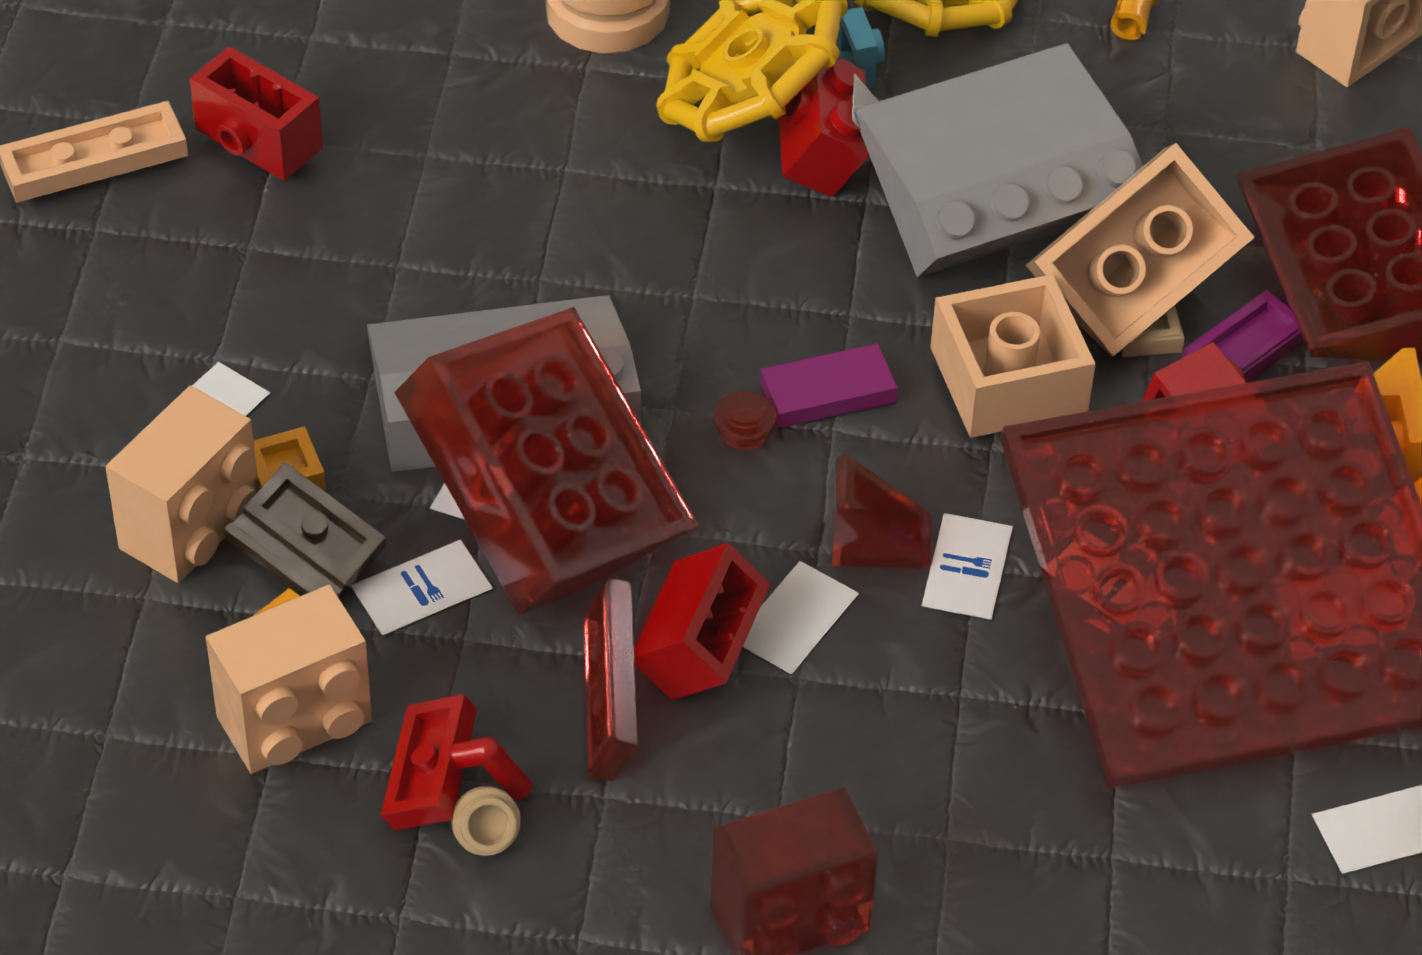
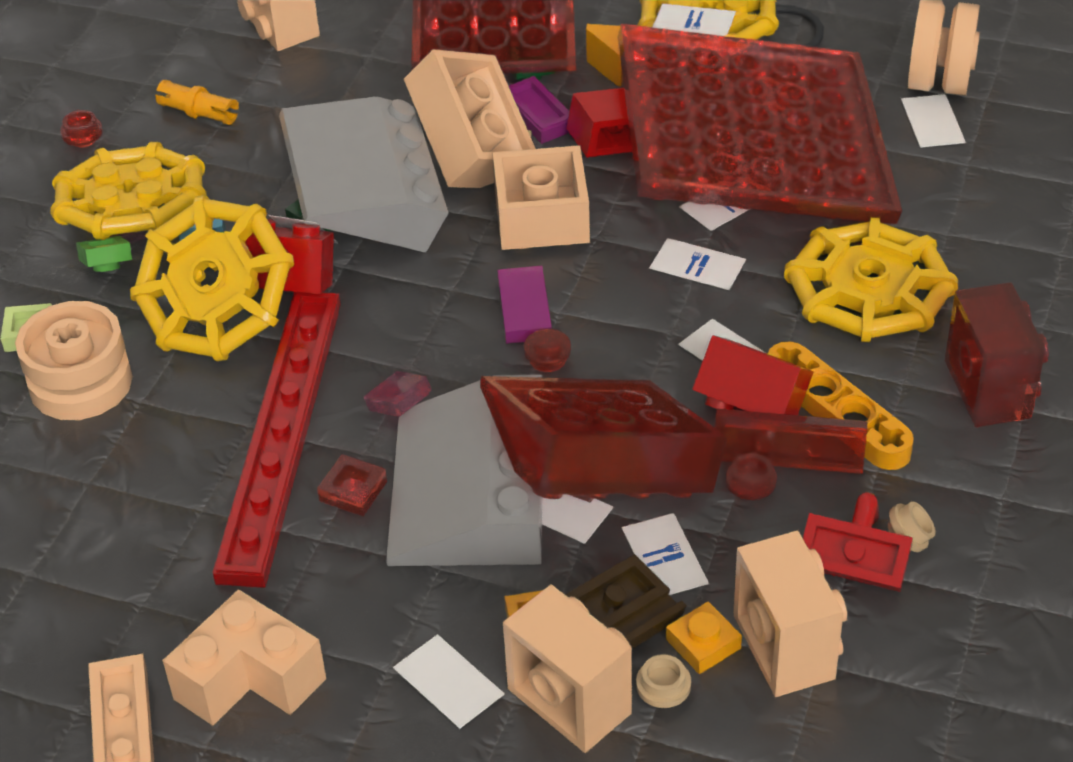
camera: 75 degrees left, 5 degrees down
(189, 221) = (240, 651): none -> light nougat brick
(211, 597) = (663, 681): none -> tan plate
(256, 113) = (139, 594): red brick -> none
(467, 268) = (352, 485): none -> clear red plate
(551, 651) = (751, 477): none -> clear red plate
(553, 194) = (277, 442): none -> red tile
(626, 283) = (398, 393): none -> clear pink tile
(699, 731) = (848, 399): none -> light orange beam
(876, 522) = (665, 297): clear red slope -> none
(970, 789) = (845, 273): none -> yellow plate

